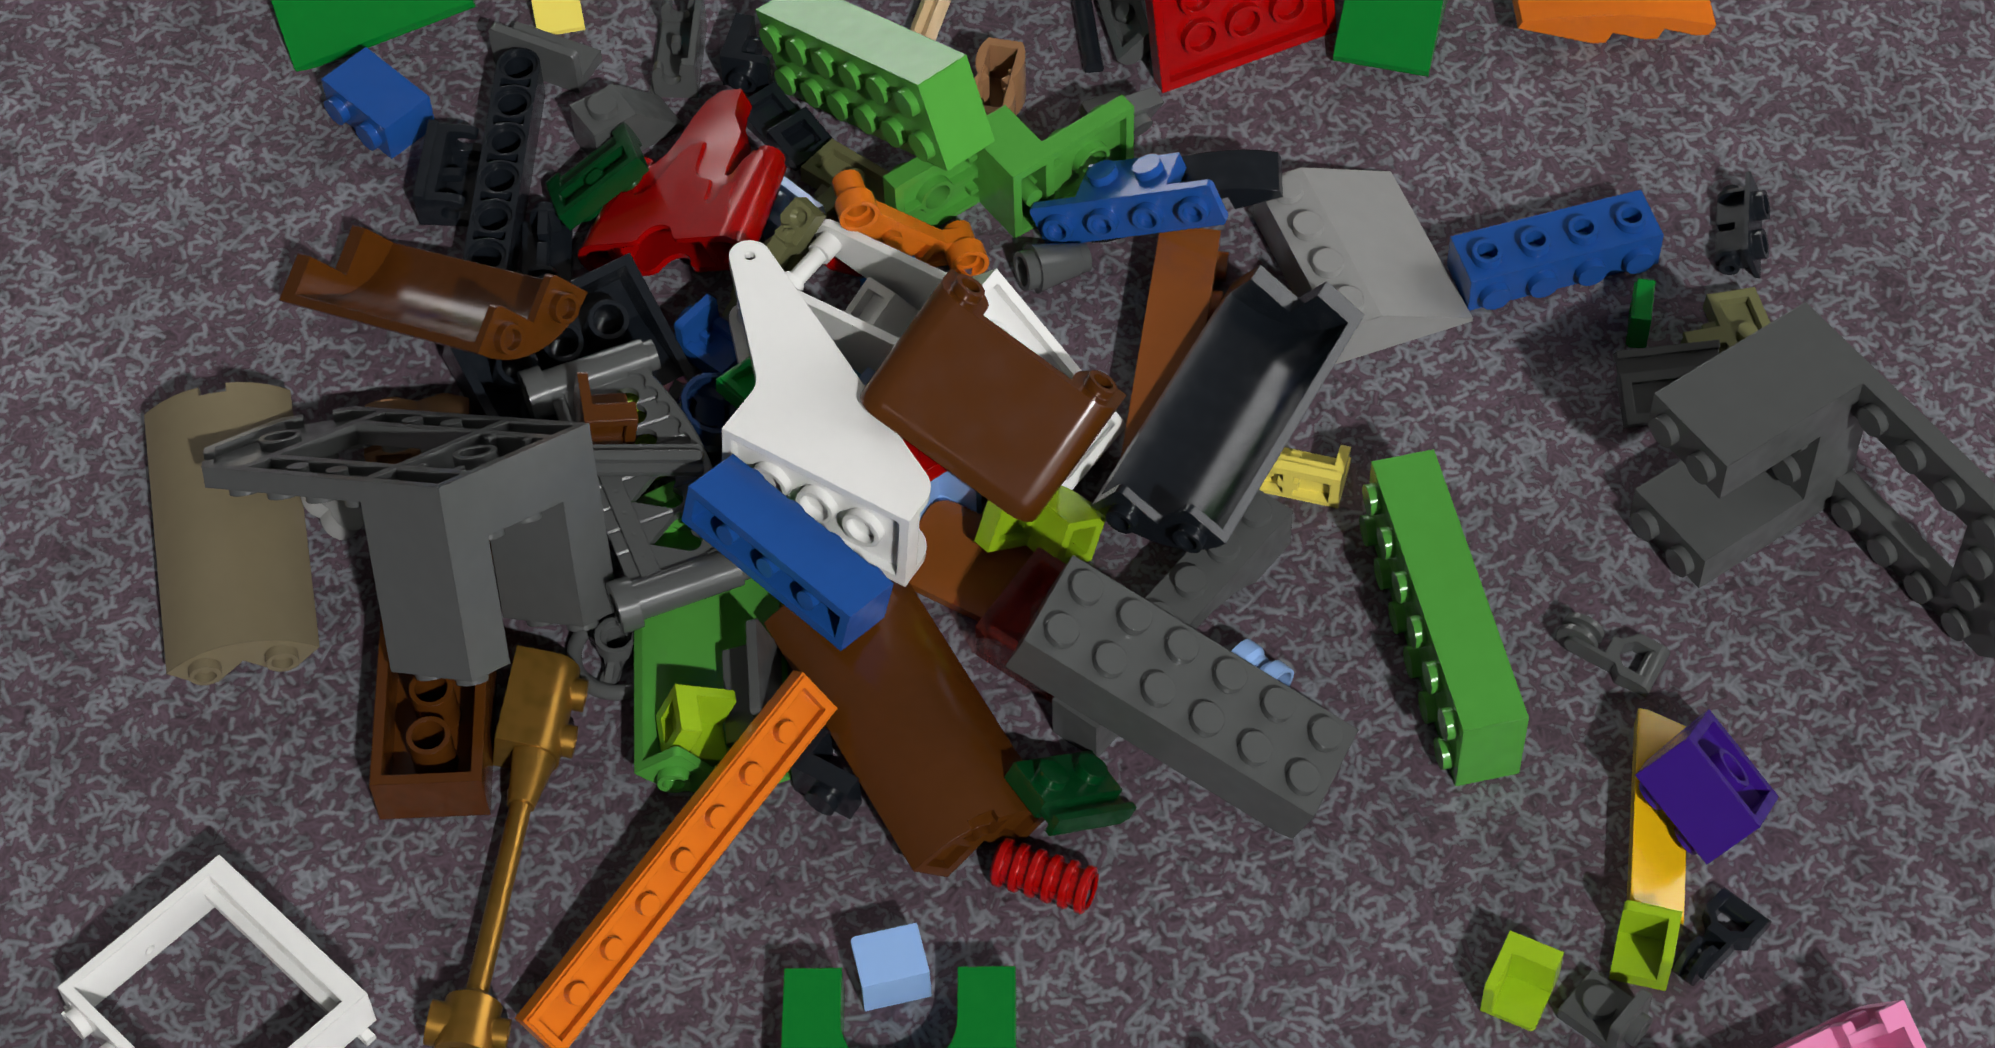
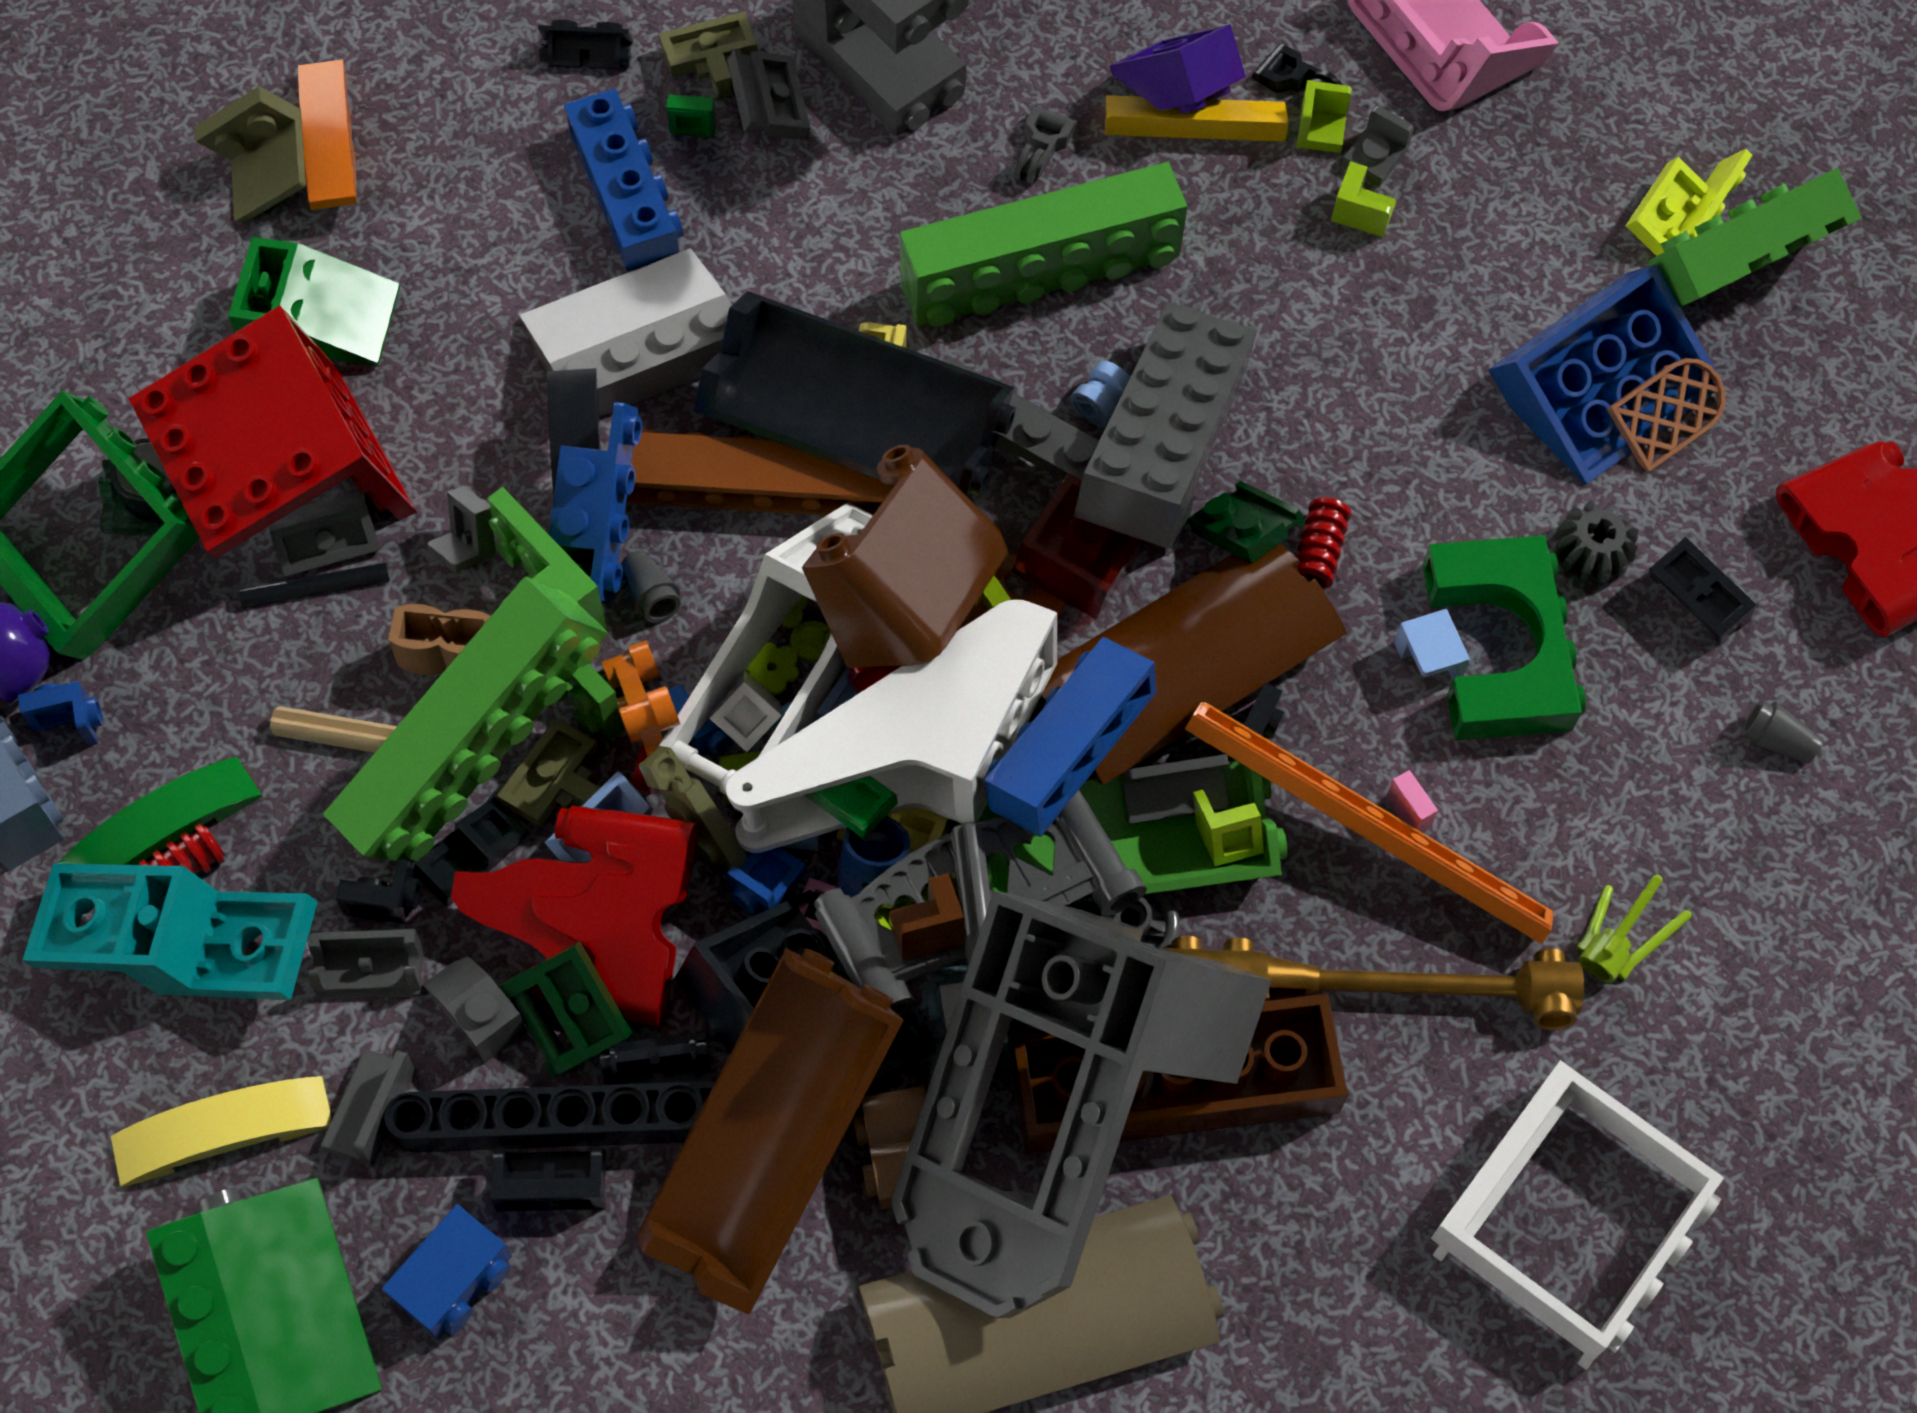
camera: 100 degrees left, 10 degrees up
(705, 920) = (1411, 802): none -> bright pink tile

